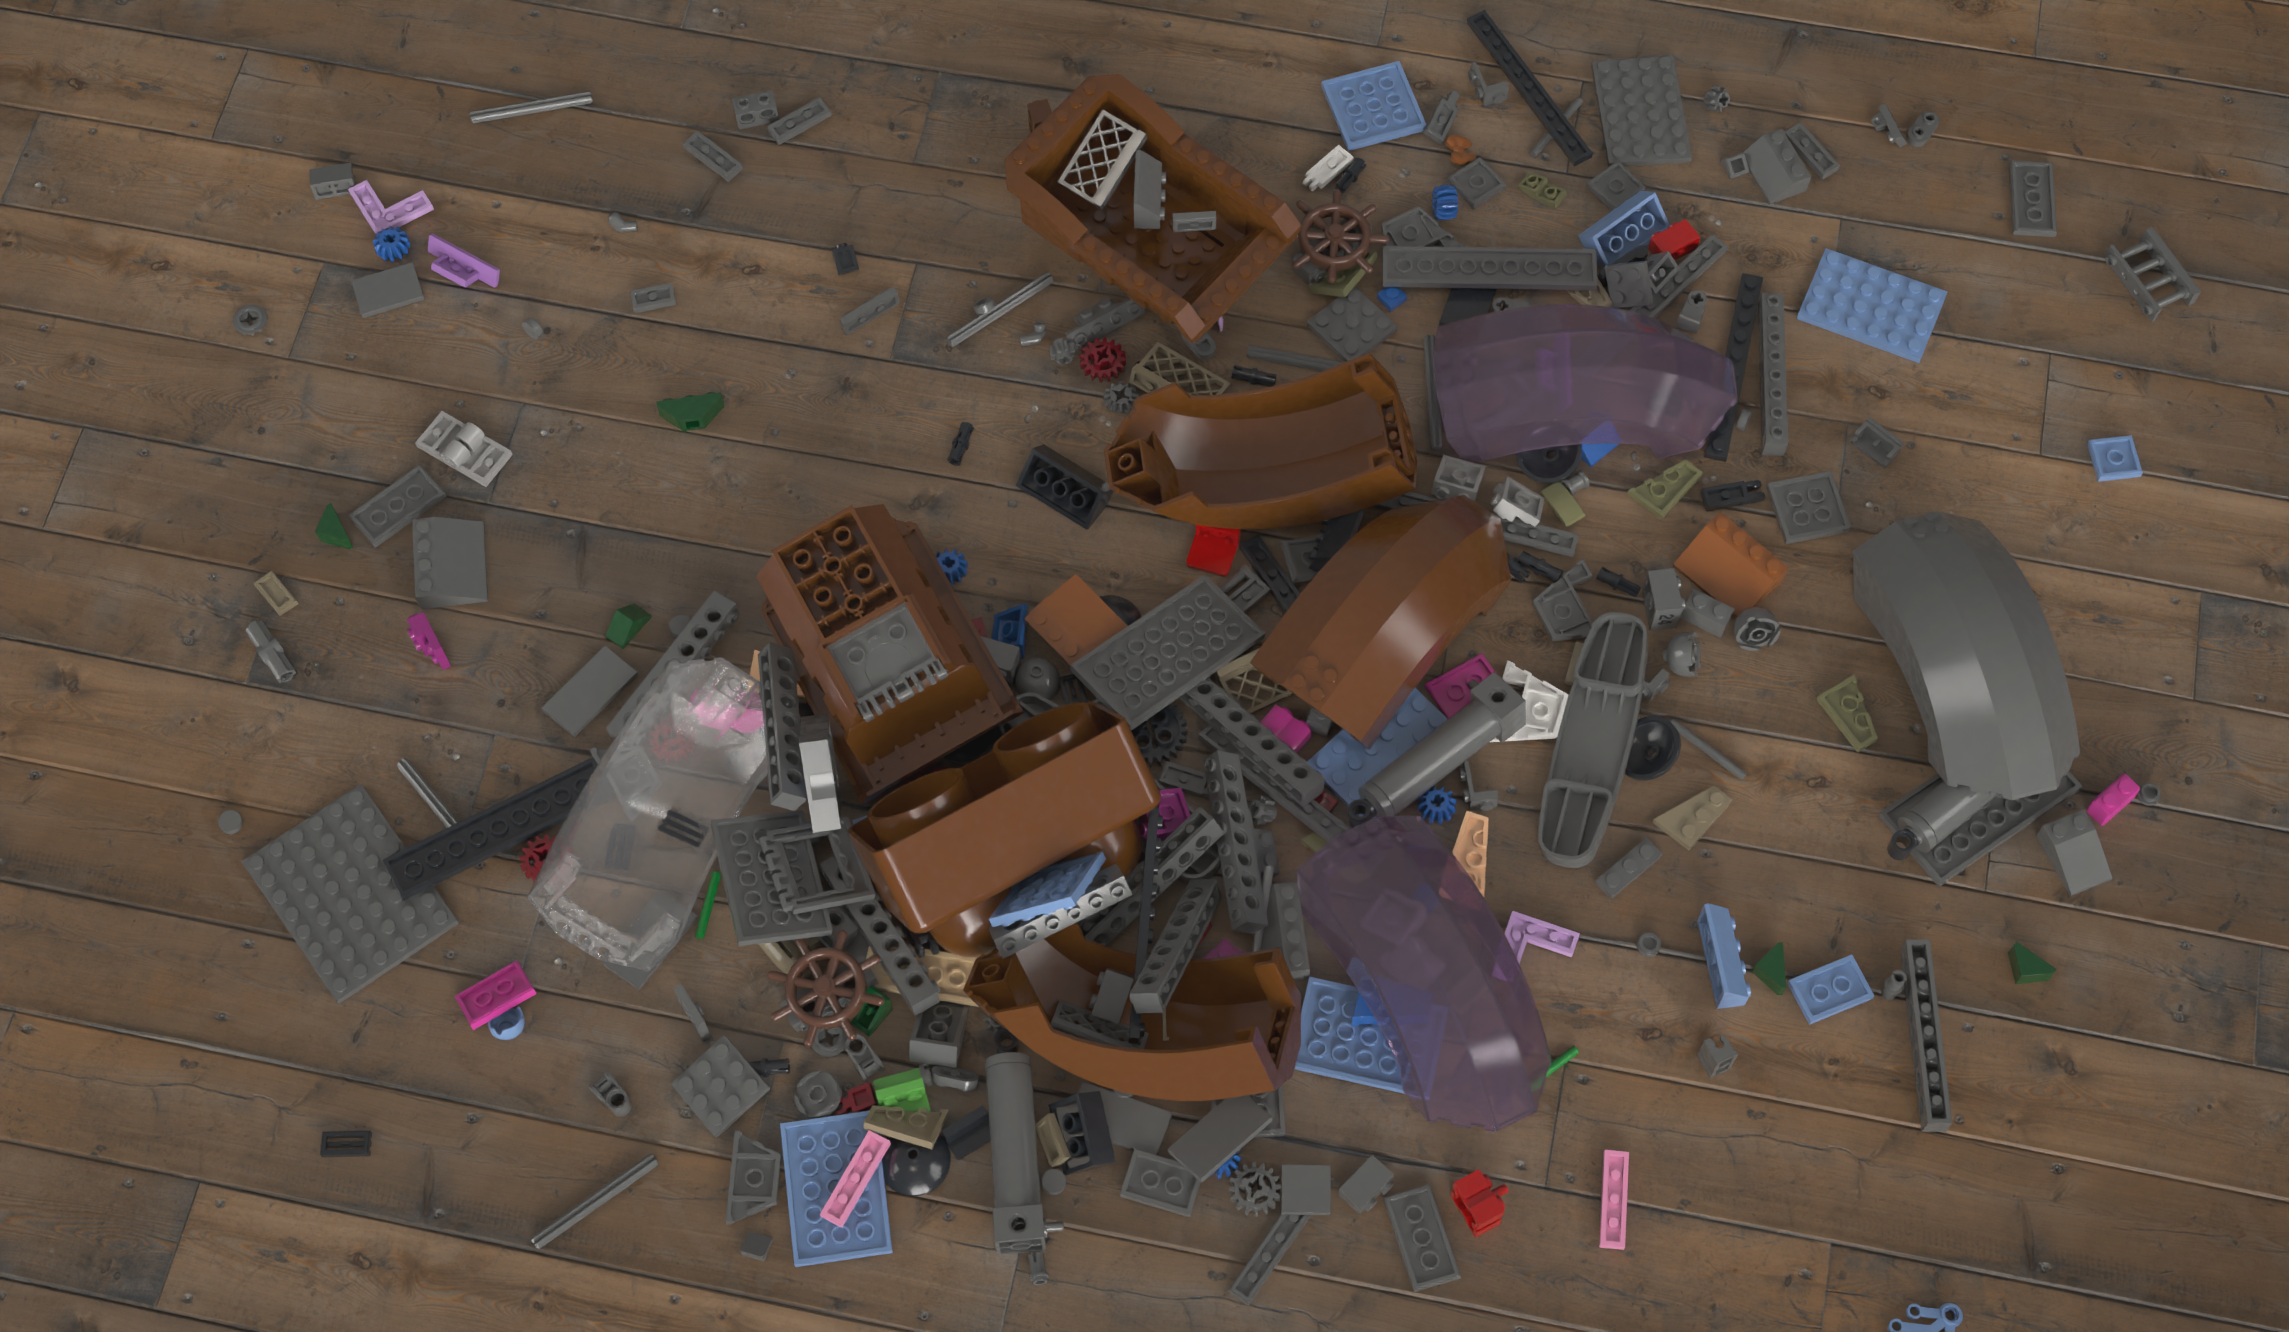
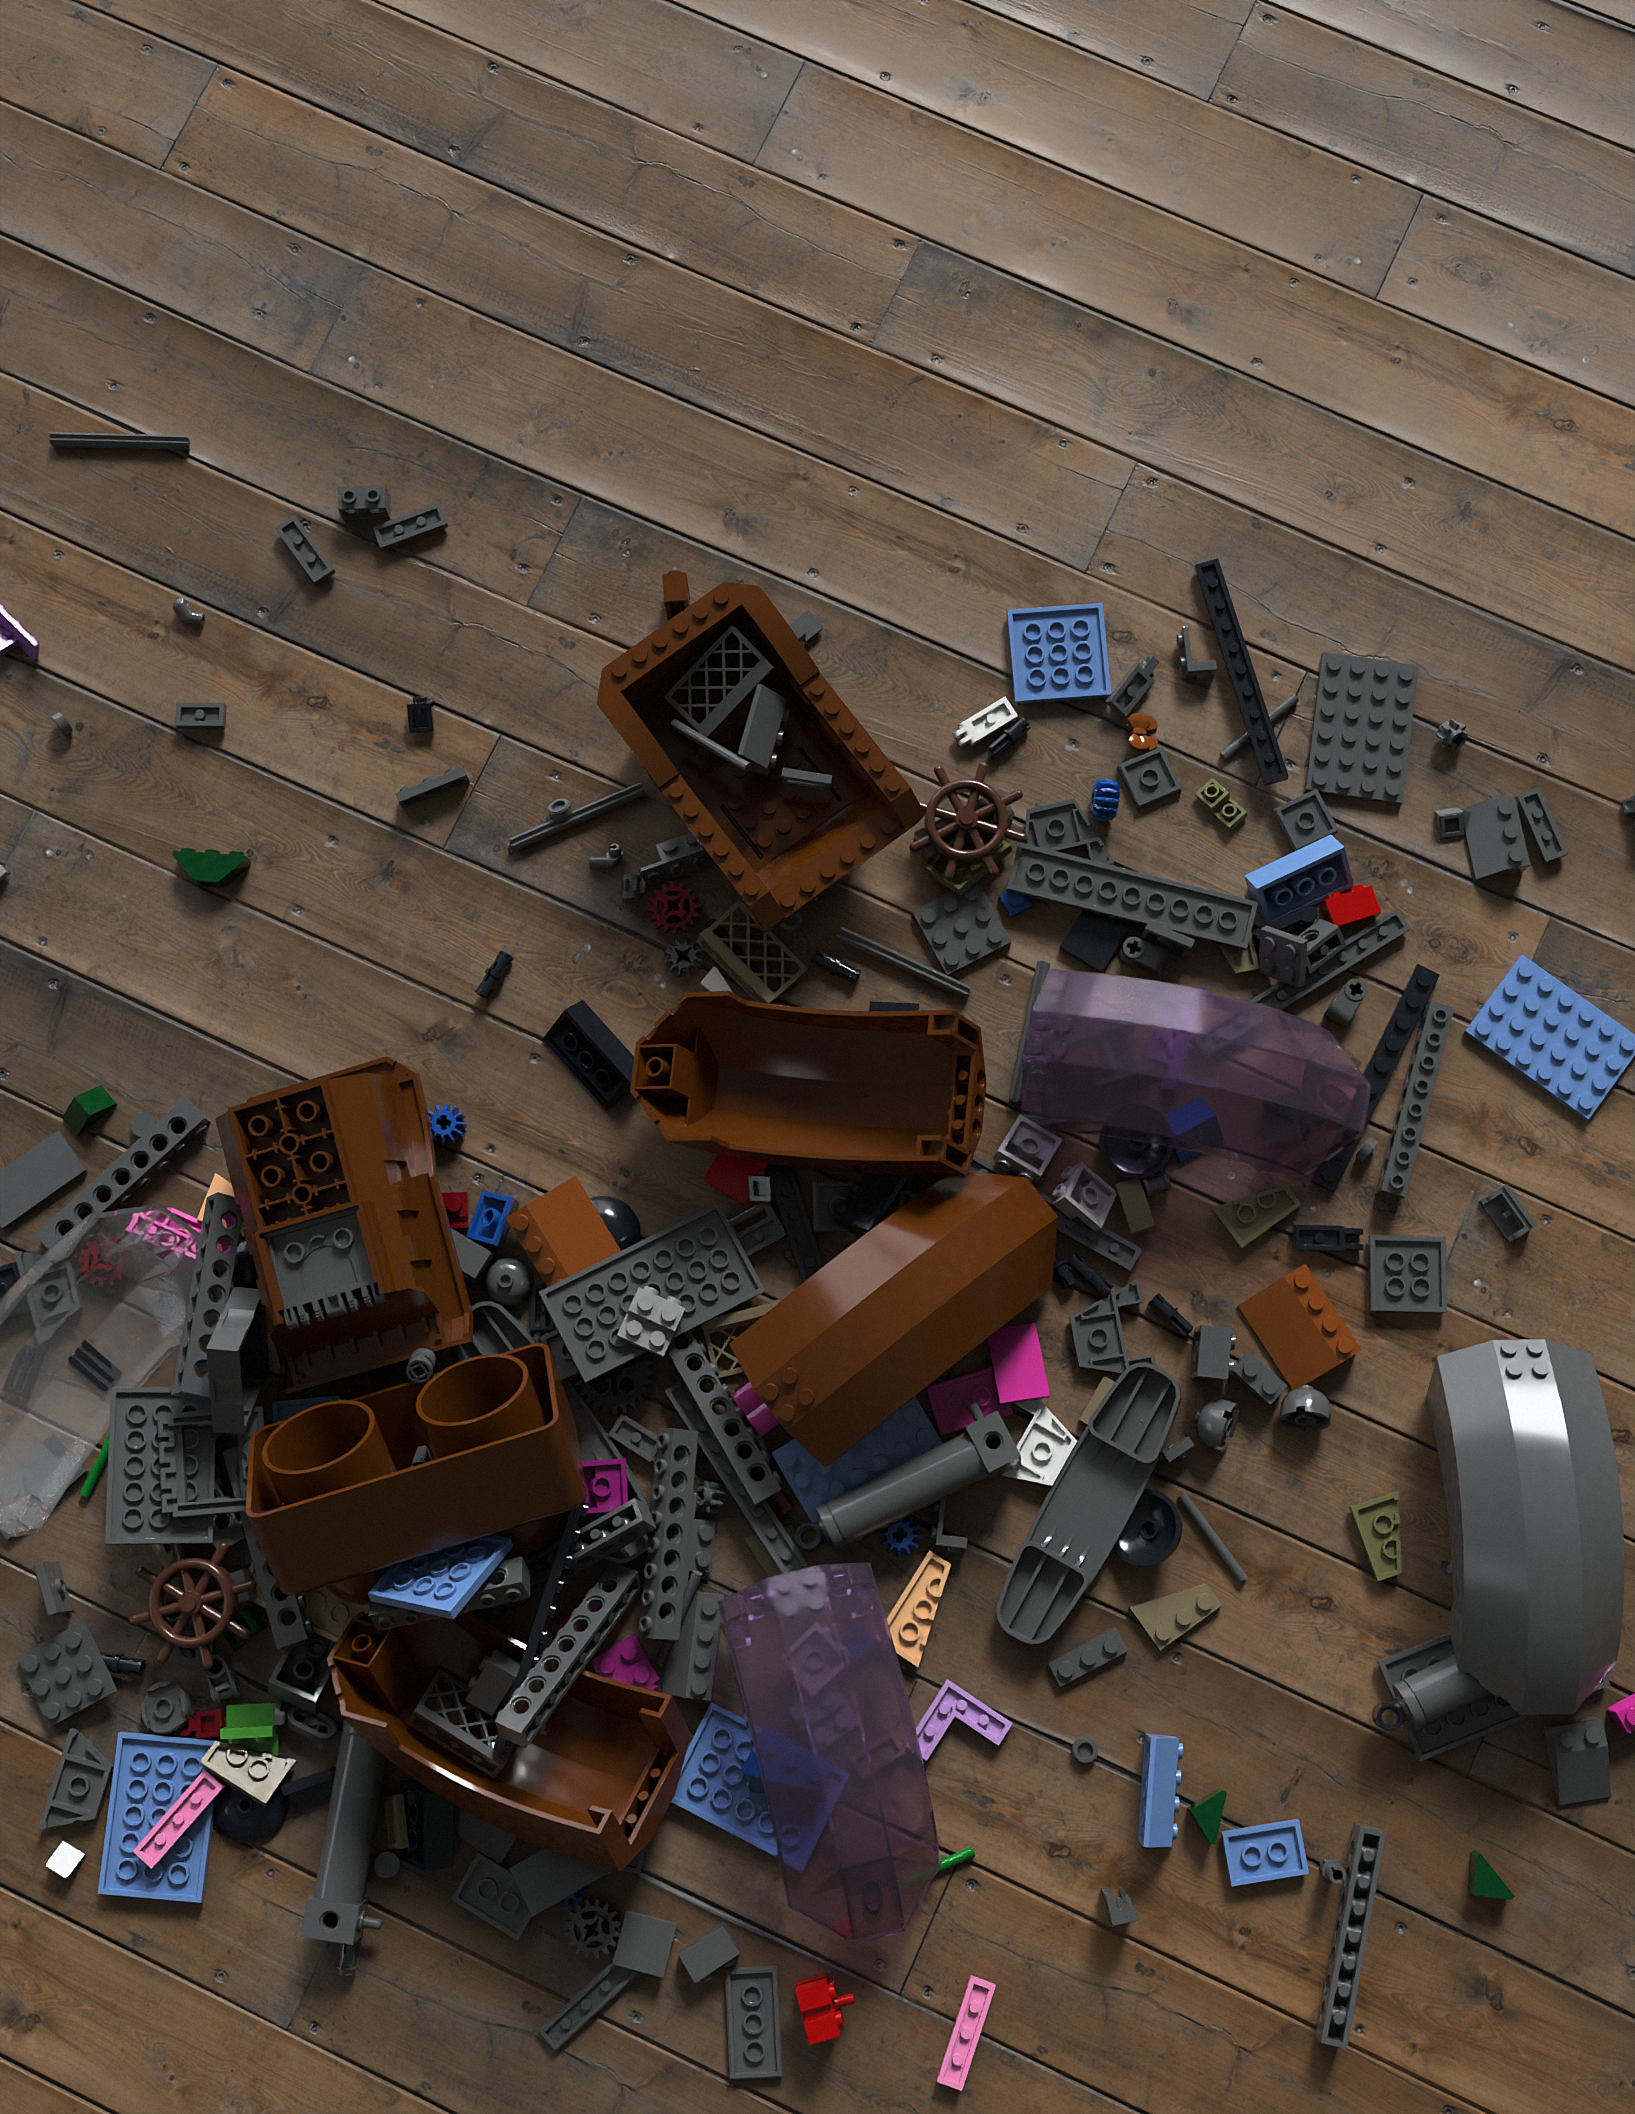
camera: 15 degrees right, 15 degrees up
(985, 732) = (421, 1365): none -> dark grey wheel
(1107, 207) = (710, 745): none -> dark grey bar
(1175, 668) = (651, 1321): none -> light grey plate
(1239, 555) = (762, 1187): none -> dark grey plate
(1499, 646) = (1018, 1364): none -> dark pink tile
(1529, 290) = (1172, 941): none -> dark grey plate

